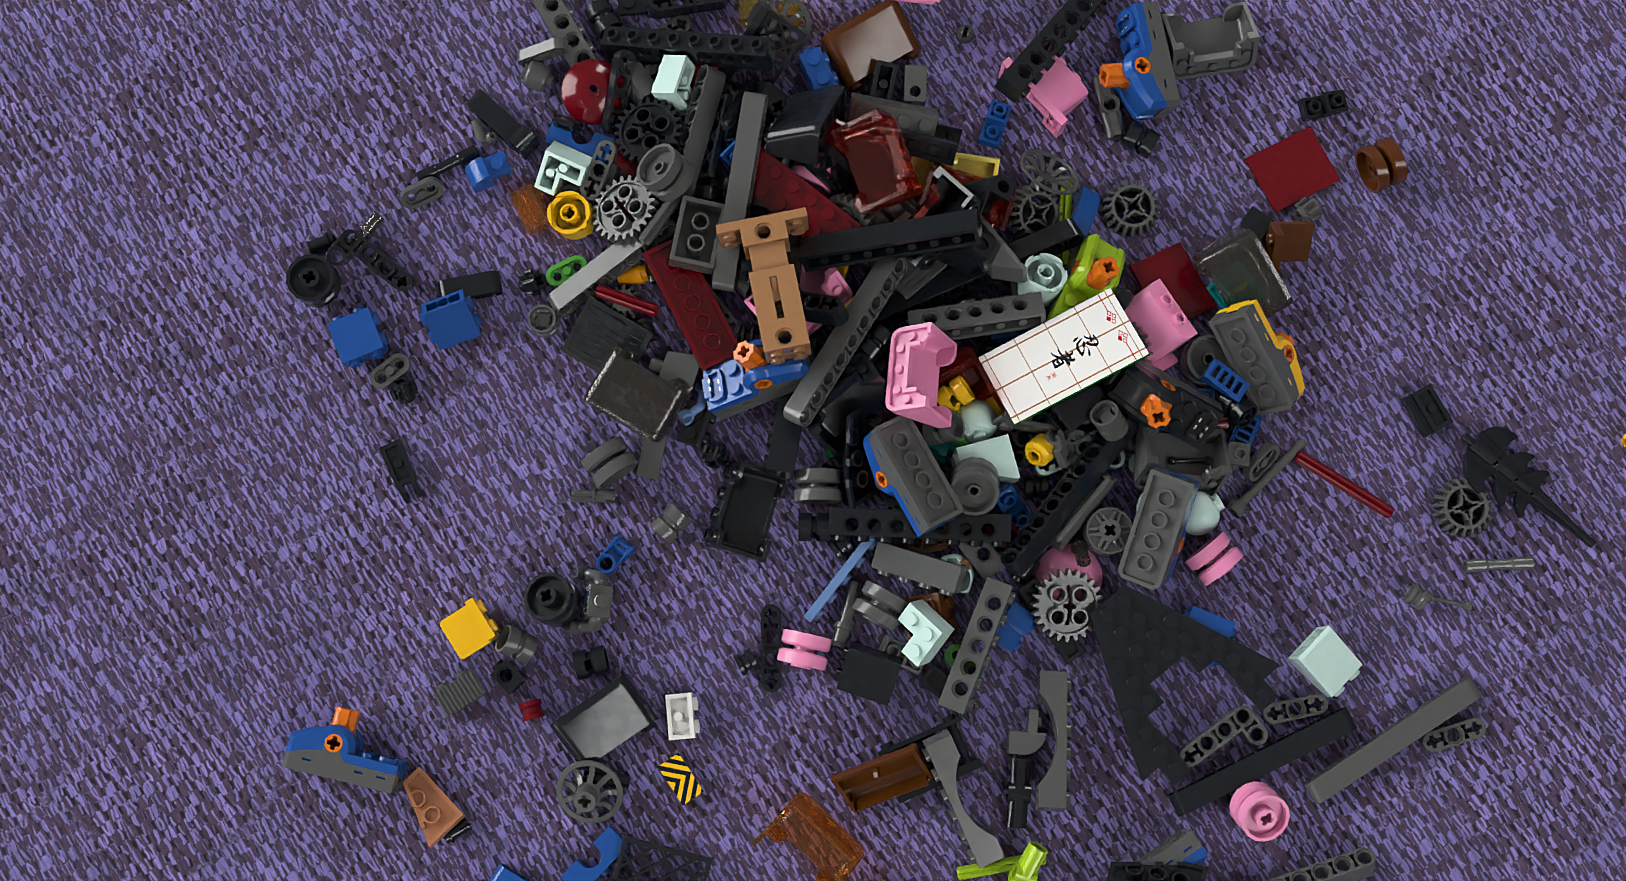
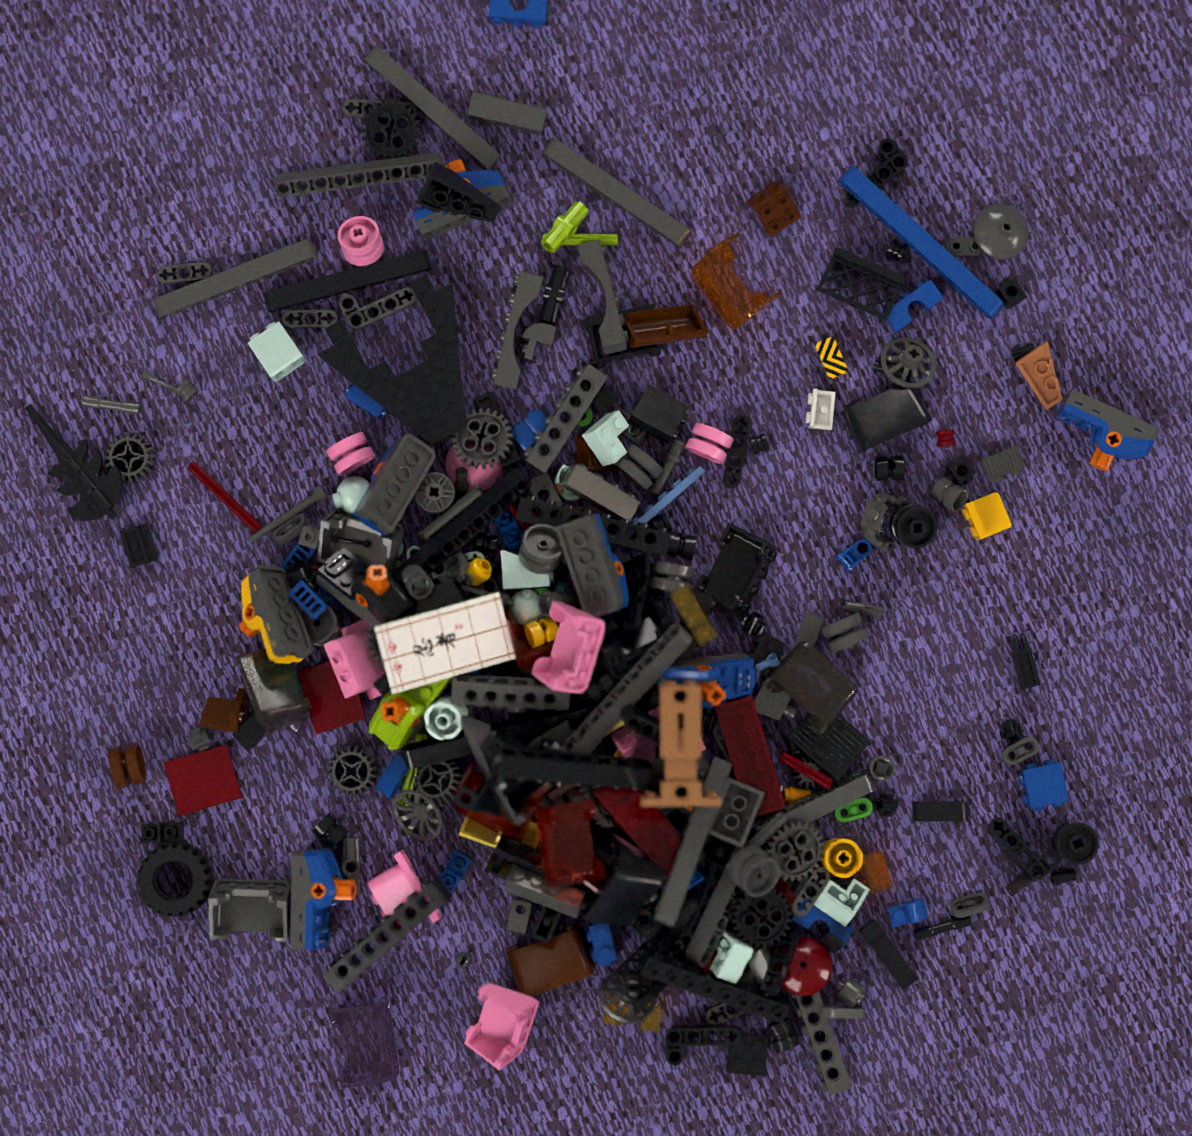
camera: 175 degrees left, 5 degrees up
(451, 319) = (961, 783): blue brick -> none
(483, 136) = (907, 948): dark grey arm -> none
(670, 523) = (802, 571): dark grey wheel -> none
(778, 433) = (693, 614): none -> clear yellow arch
(1312, 33) = (150, 887): none -> black tyre

